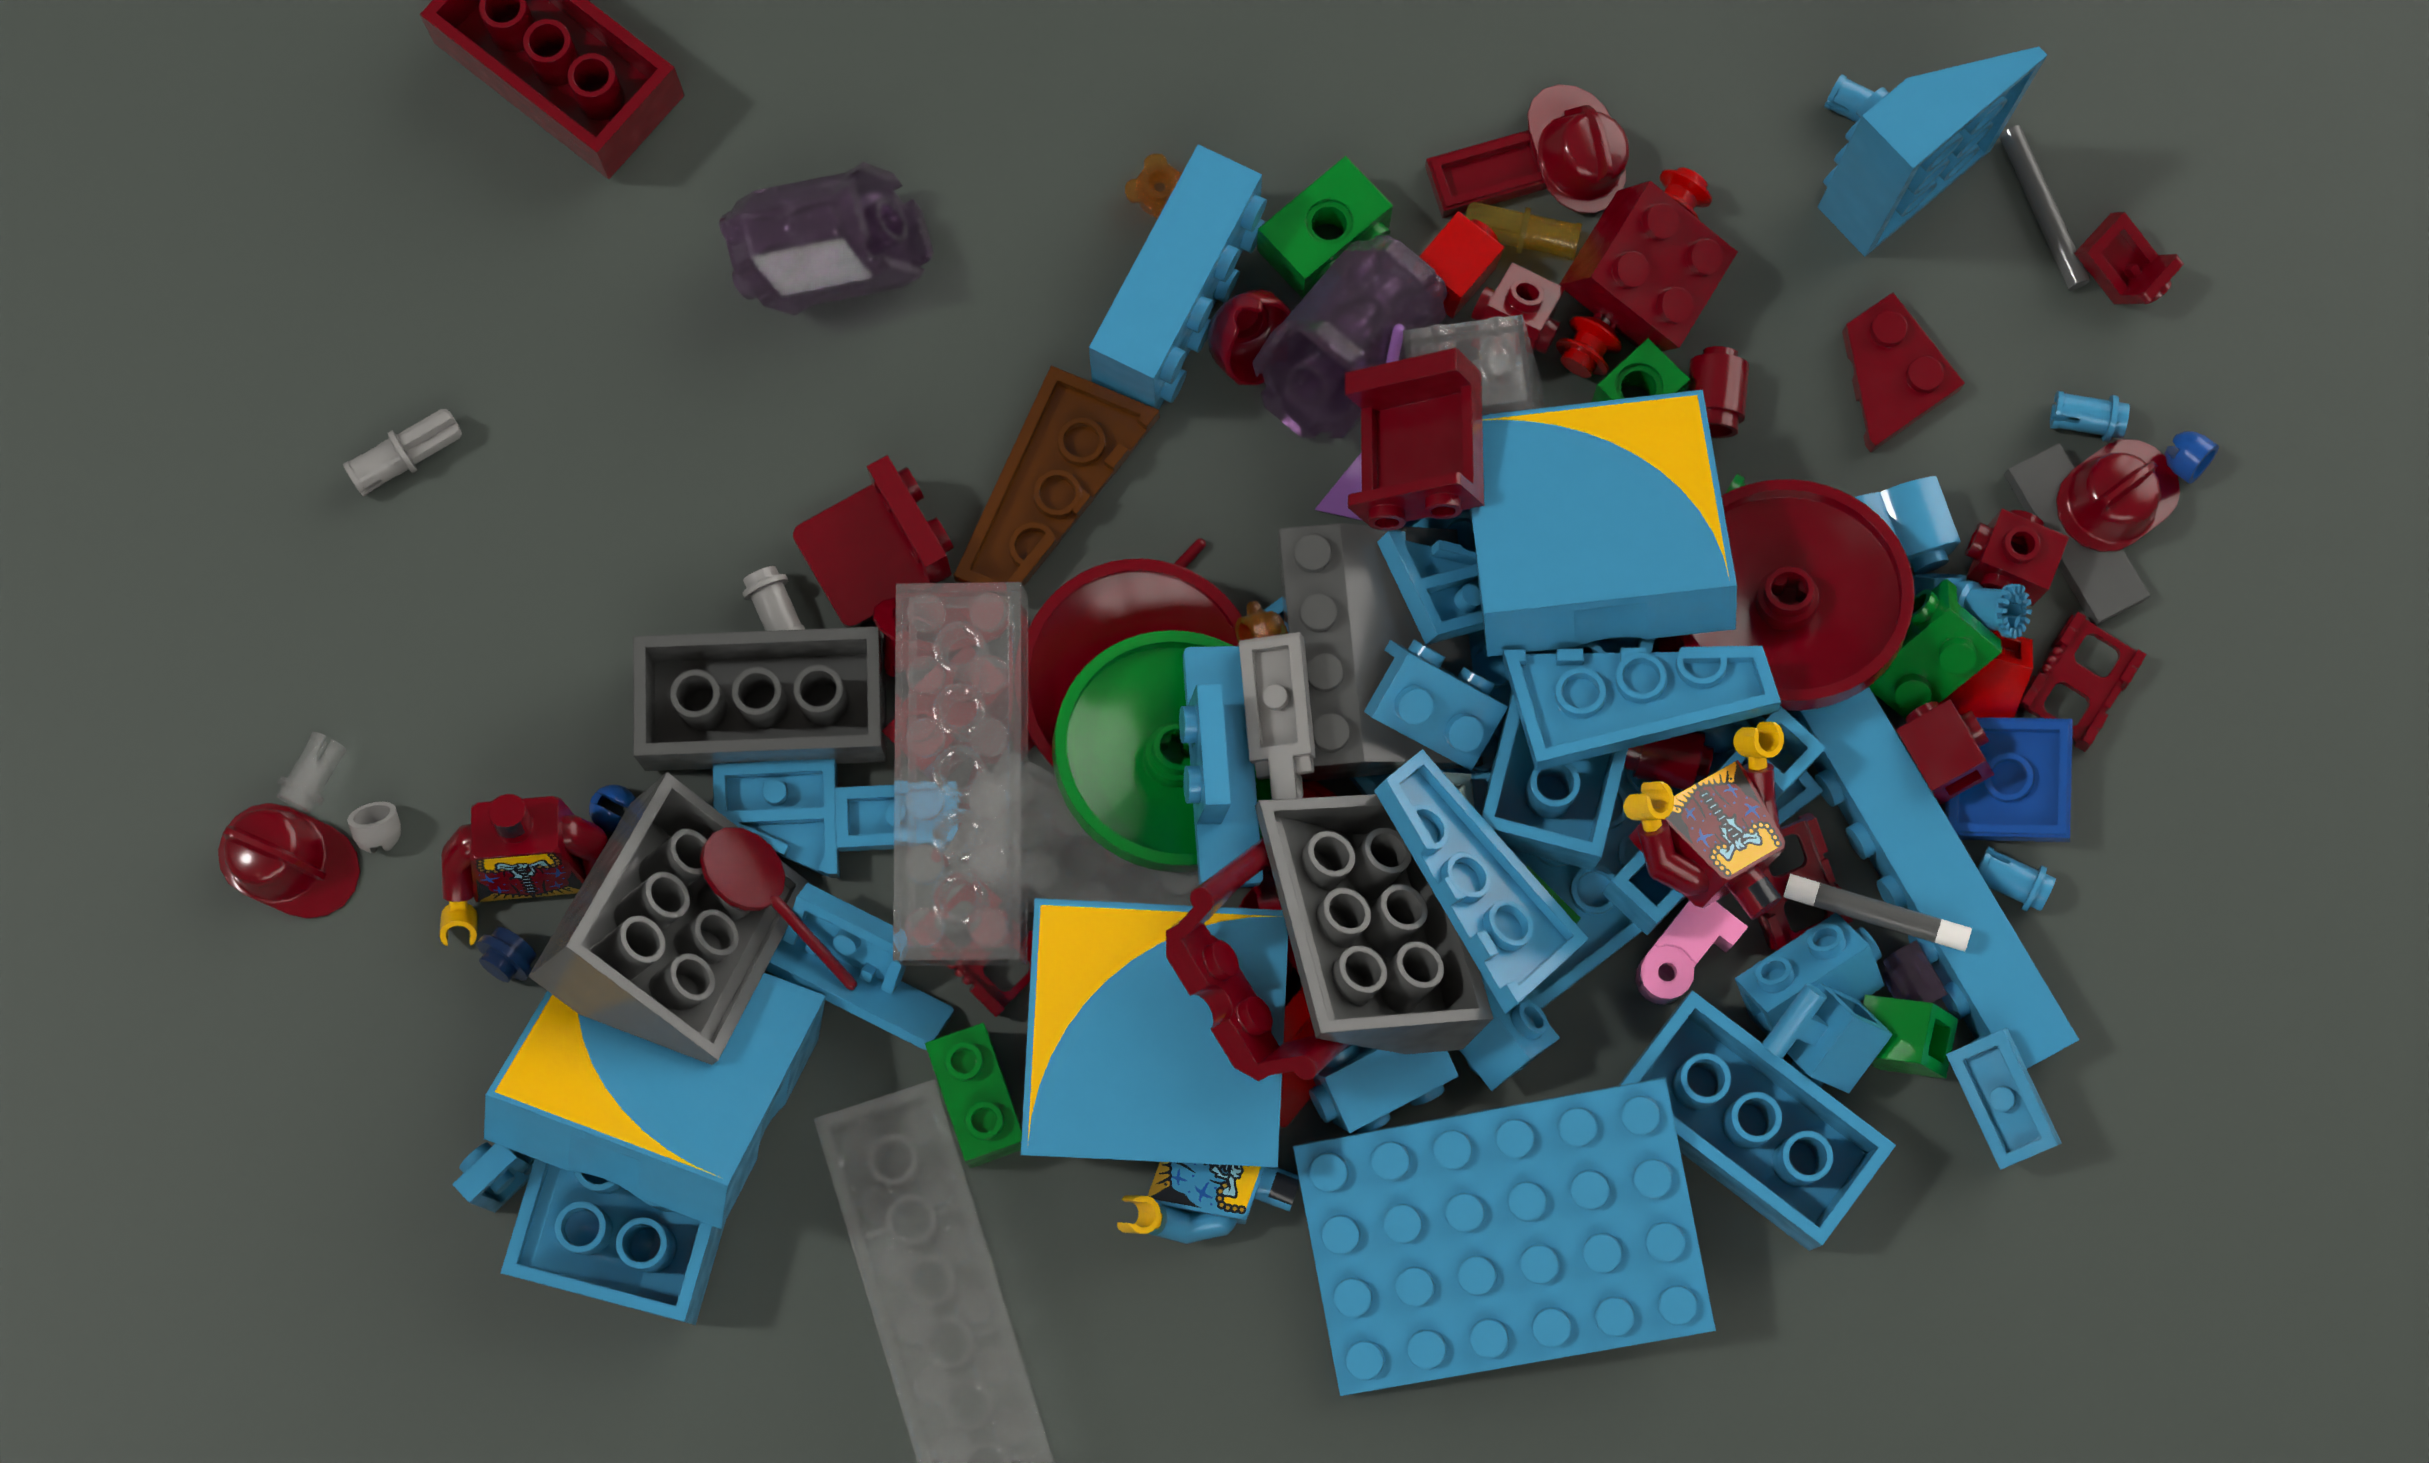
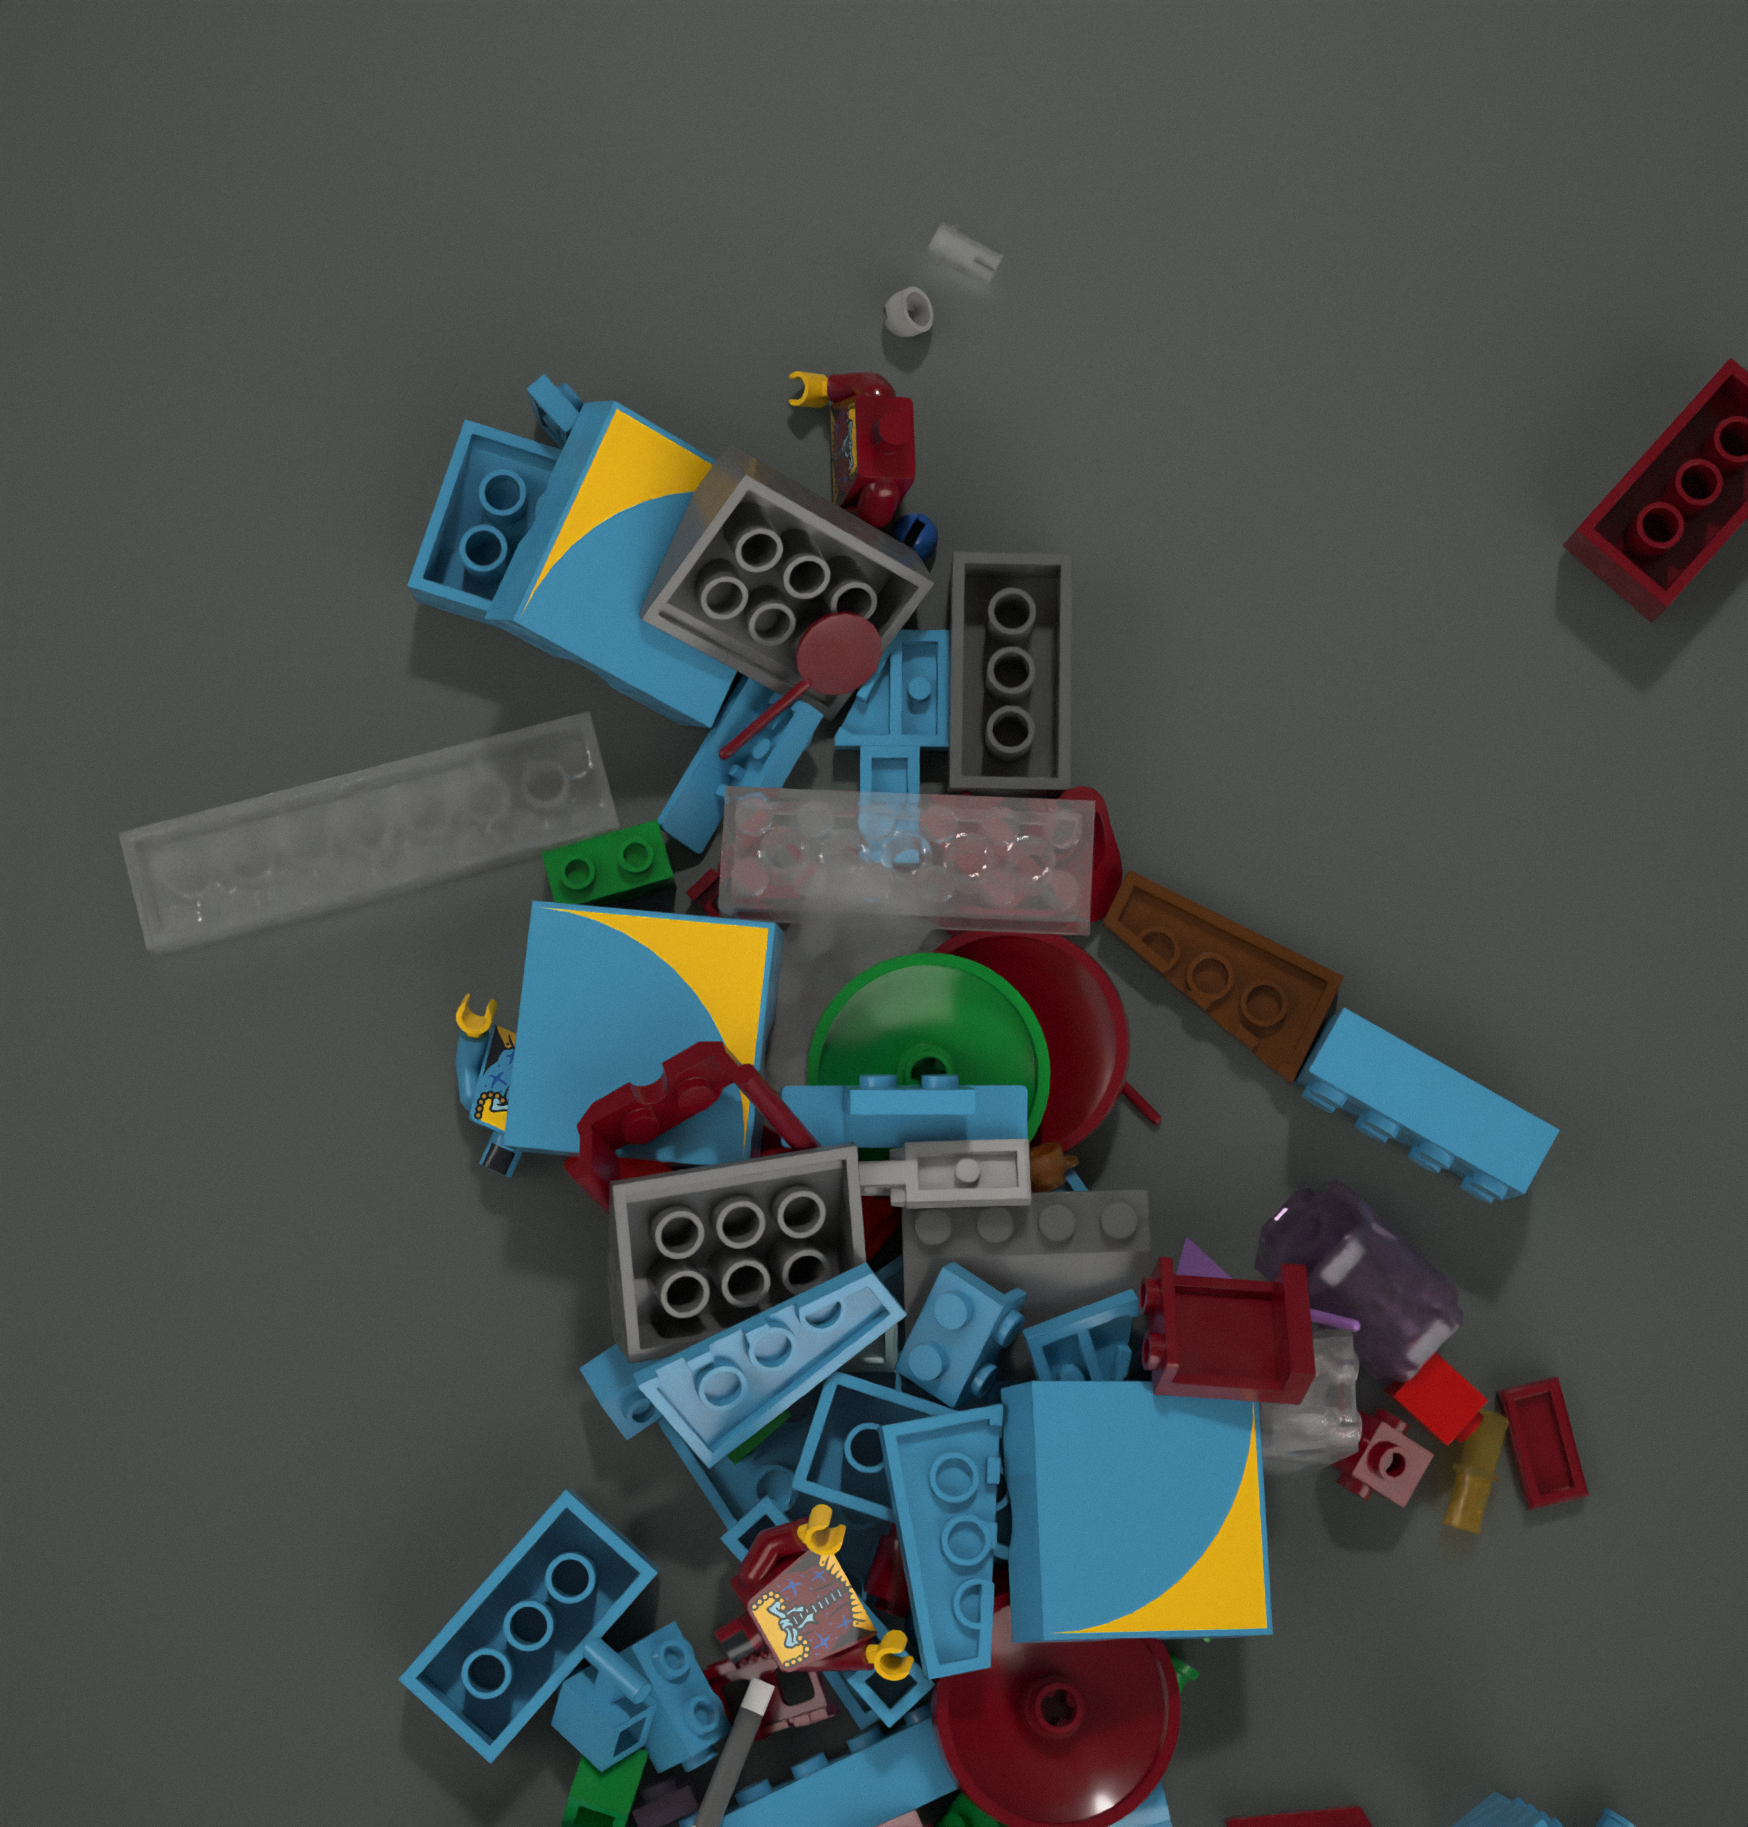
camera: 90 degrees right, 5 degrees up
(288, 861) = (882, 234): dark red piece -> none
(402, 451) = (1283, 341): light grey axle -> none
(506, 955) = (774, 432): dark blue plate -> none
(771, 599) = (1109, 694): light grey pin -> none
(825, 240) = (1482, 755): clear purple brick -> none
(873, 544) = (1163, 793): dark red bracket -> none
(1142, 188) = (1534, 1080): clear orange plate -> none
(1241, 330) = (1370, 1170): dark red hair -> none
(1337, 198) = (1515, 1278): green brick -> none
(1369, 1083) = (580, 1247): dark azure brick -> none
(1504, 1237) = (434, 1370): dark azure plate -> none
(1577, 147) = (1566, 1537): dark red piece -> none
(1643, 271) = (1421, 1594): dark red brick -> none
(1644, 368) = (1318, 1585): green brick -> none
(1670, 963) = (696, 1557): bright pink leg -> none
(1724, 386) = (1290, 1661): dark red brick -> none

